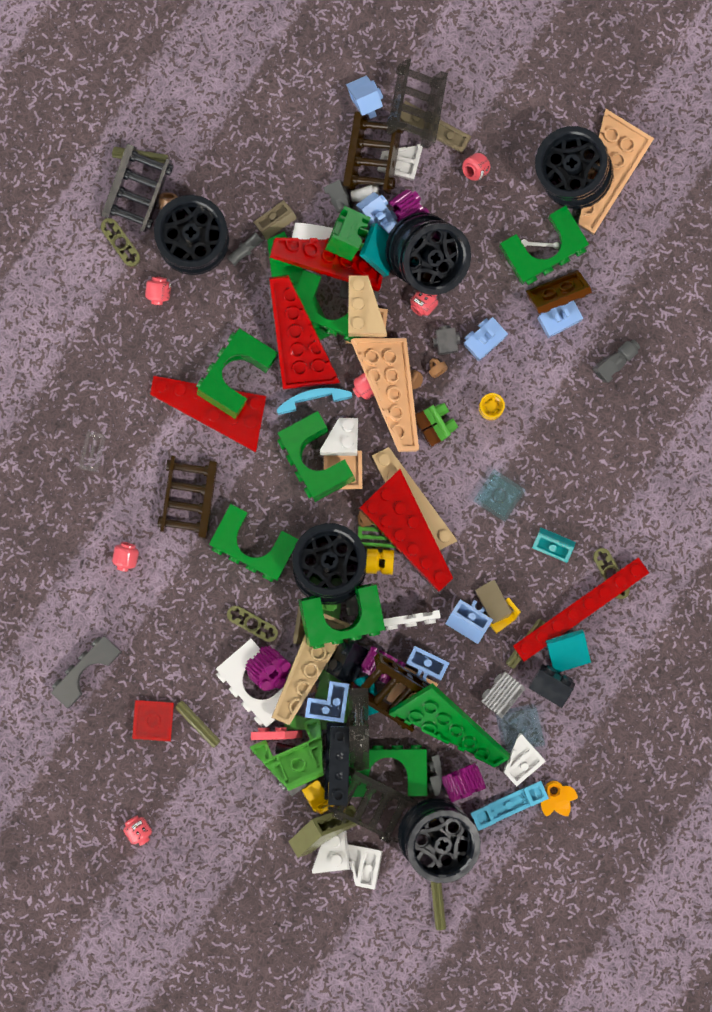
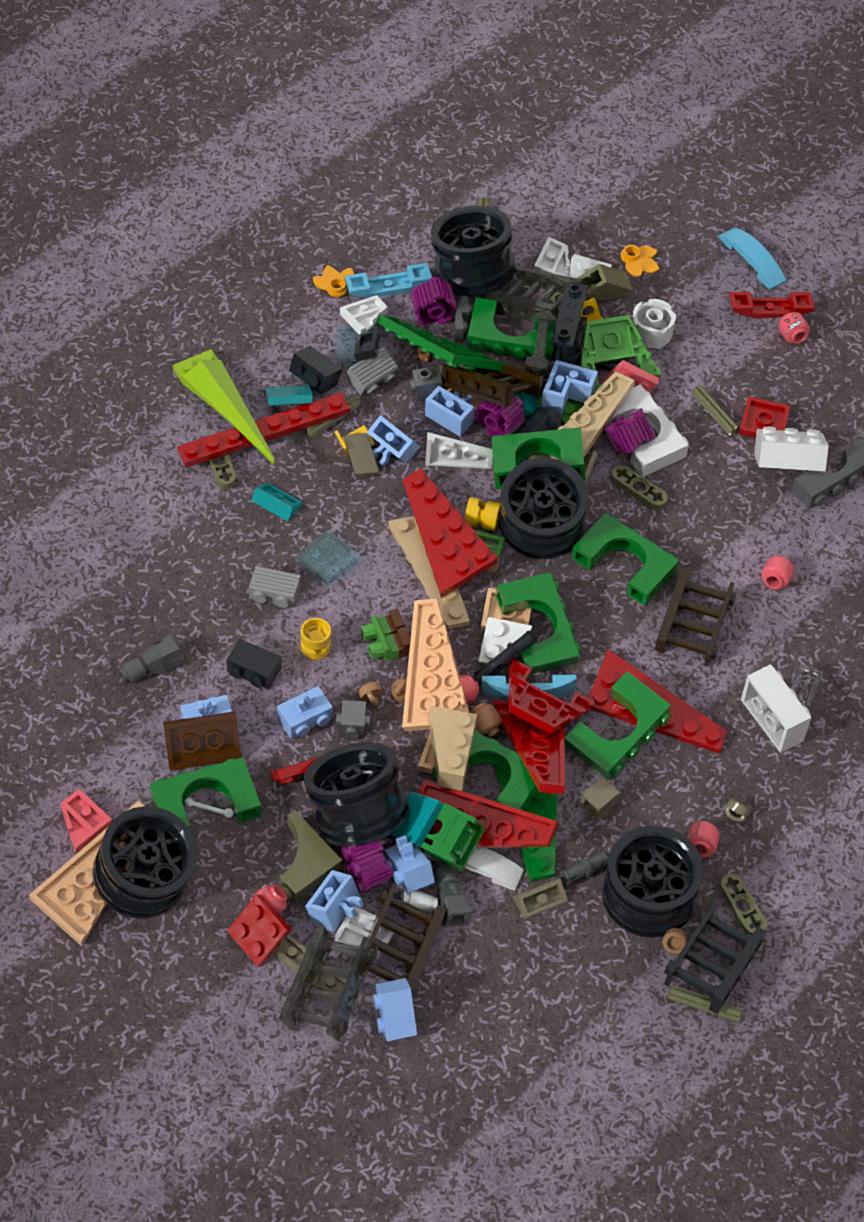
camera: 170 degrees left, 30 degrees down
(112, 415) = (776, 708): none -> white brick
(126, 681) = (791, 449): none -> white brick
(133, 325) = (738, 806): none -> dark tan tile
(161, 856) = (771, 307): none -> red slope
(184, 915) = (756, 255): none -> medium azure slope
(241, 310) = (600, 798): none -> dark tan brick
(274, 798) = (654, 322): none -> white brick
(284, 884) = (640, 260): none -> light orange plate
(301, 369) = (540, 707): none -> red wing
(332, 419) = (513, 651): none -> black pin
(343, 361) = (487, 720): none -> nougat head
(428, 175) = (334, 901): none -> light blue brick
(451, 206) = (312, 861): none -> olive arch
(461, 689) = (425, 381): none -> flat silver brick
(477, 141) = (259, 930): none -> red plate
(480, 281) = (290, 772): none -> red plate
(512, 715) = (366, 345): none -> black tile
(535, 374) = (253, 664): none -> black brick
(536, 453) = (274, 587): none -> light grey brick
(631, 211) = (83, 819): none -> coral wing
(642, 657) = (212, 383): none -> lime plate

